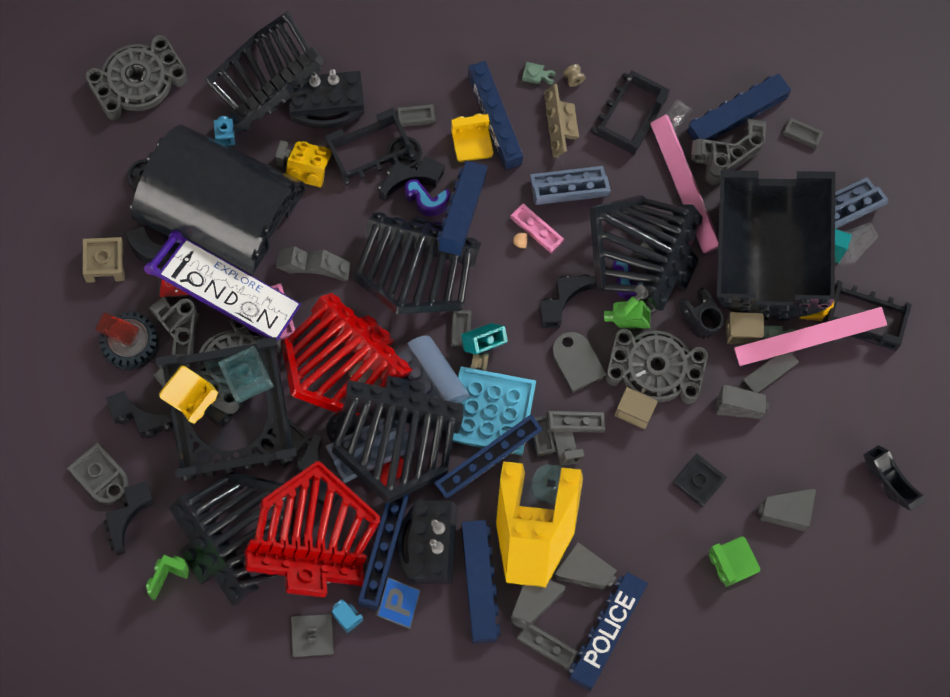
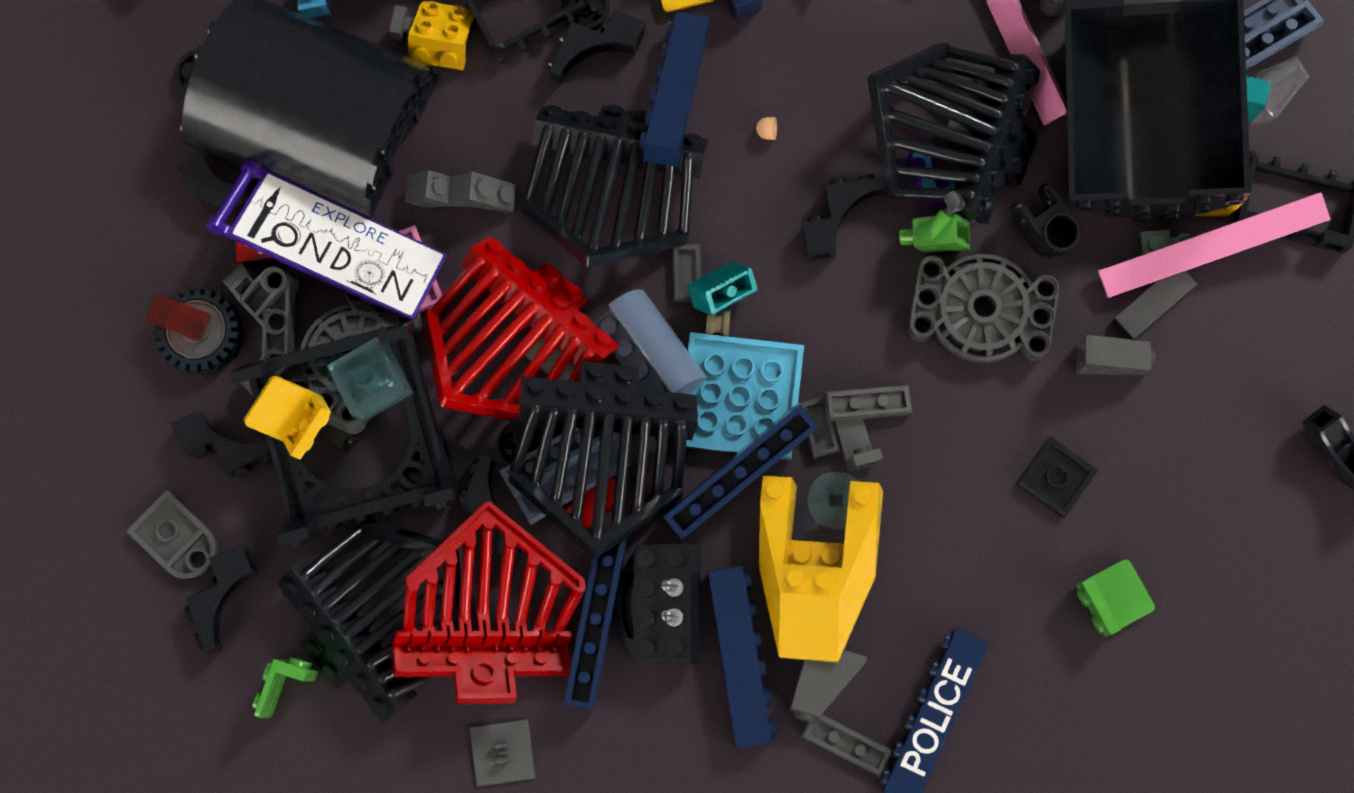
camera: 10 degrees right, 10 degrees up
(103, 258) = (149, 209): dark tan panel -> none
(346, 615) = (548, 721): dark azure brick -> none
(398, 603) = (623, 698): blue piece -> none
(425, 203) = (619, 82): dark purple animal -> none
(537, 228) = (790, 107): bright pink tile -> none
(569, 185) = (835, 36): sand blue brick -> none
(577, 363) = (864, 311): dark grey tile -> none
(586, 569) = (896, 627): dark grey slope -> none
(635, 408) = (956, 376): dark tan piece -> none
(744, 328) = (1113, 239): dark tan piece -> none
(789, 509) = (1194, 513): dark grey slope -> none

